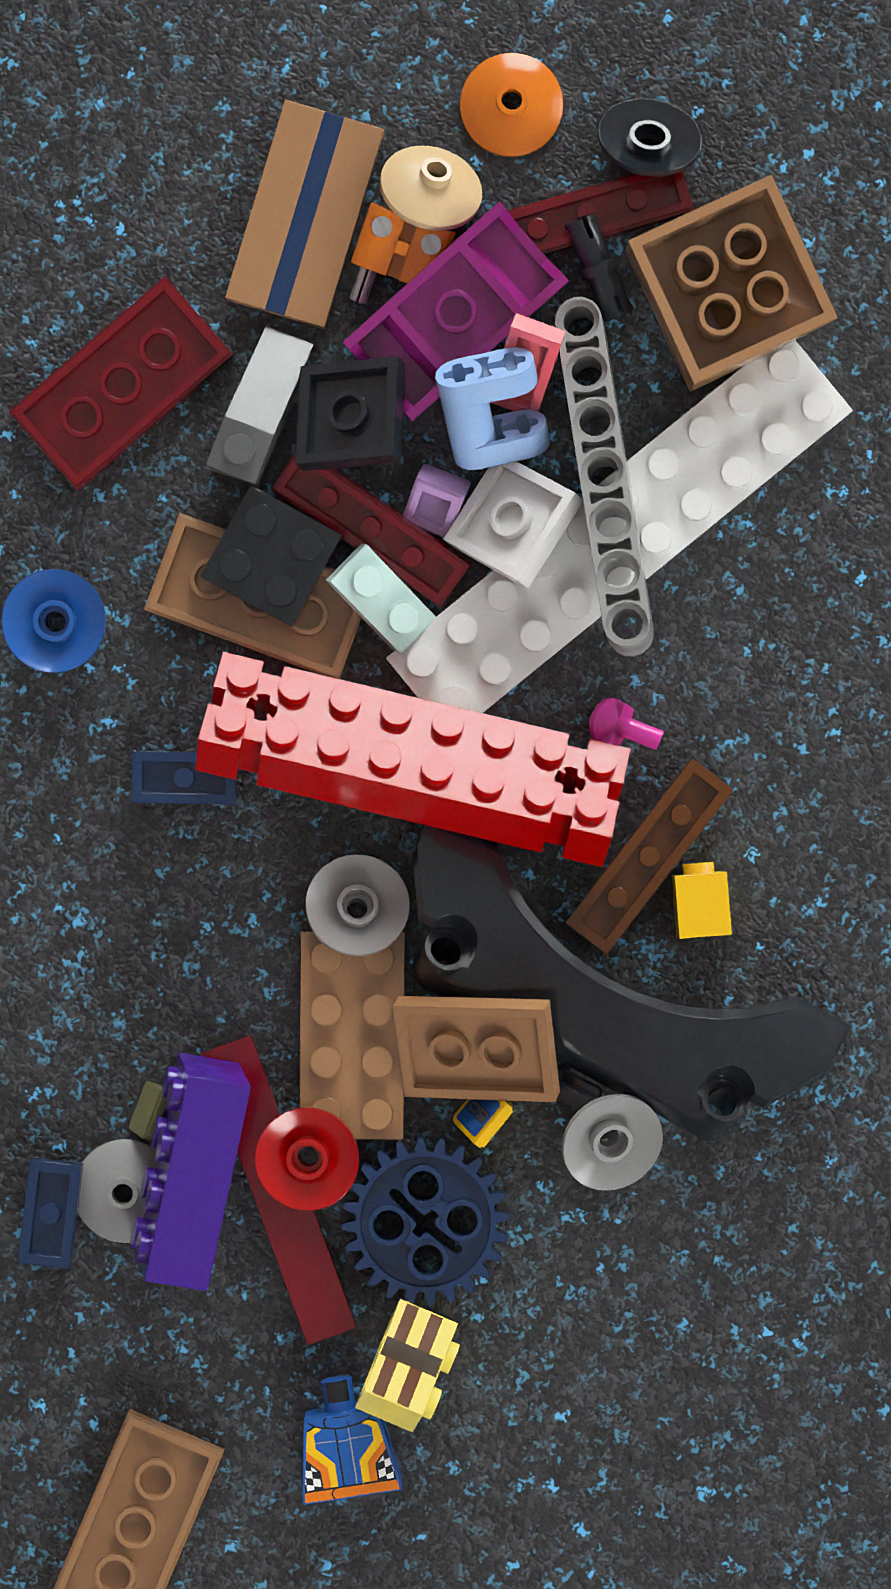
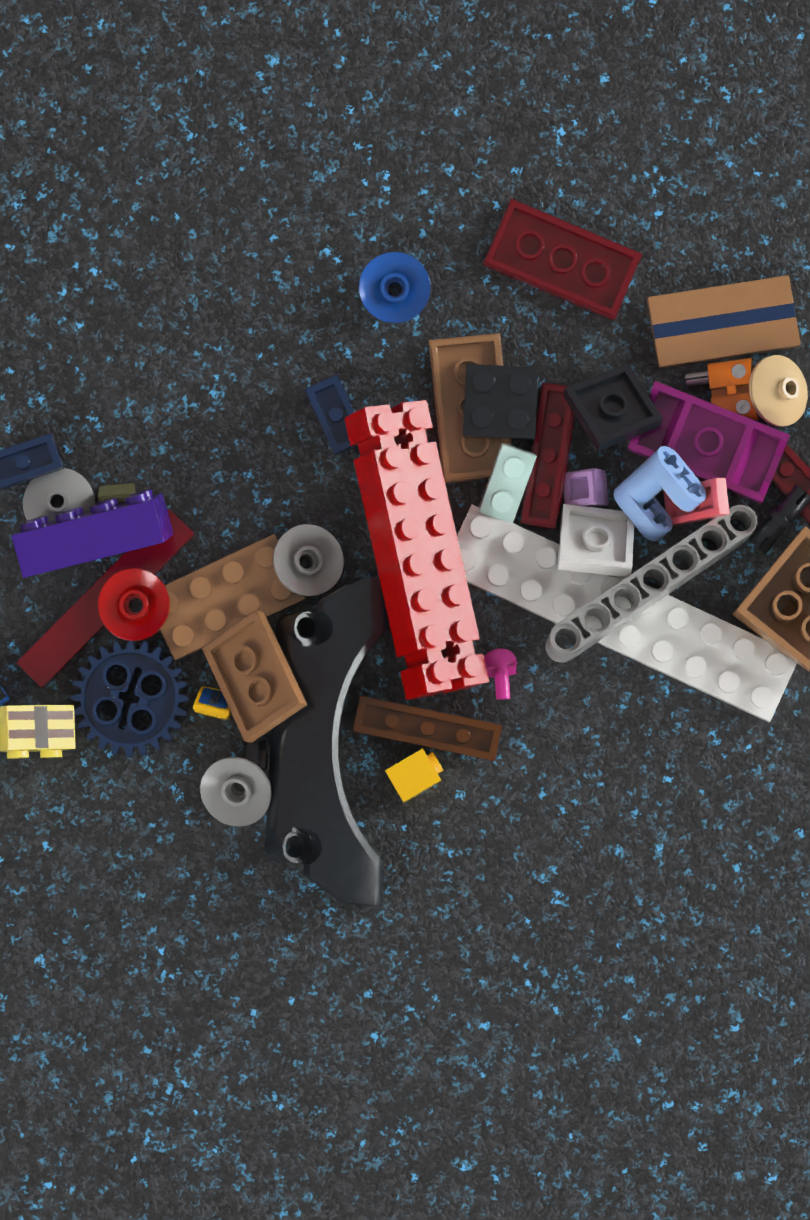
camera: 65 degrees right, 5 degrees down
(259, 408) = (588, 351): slope -> none

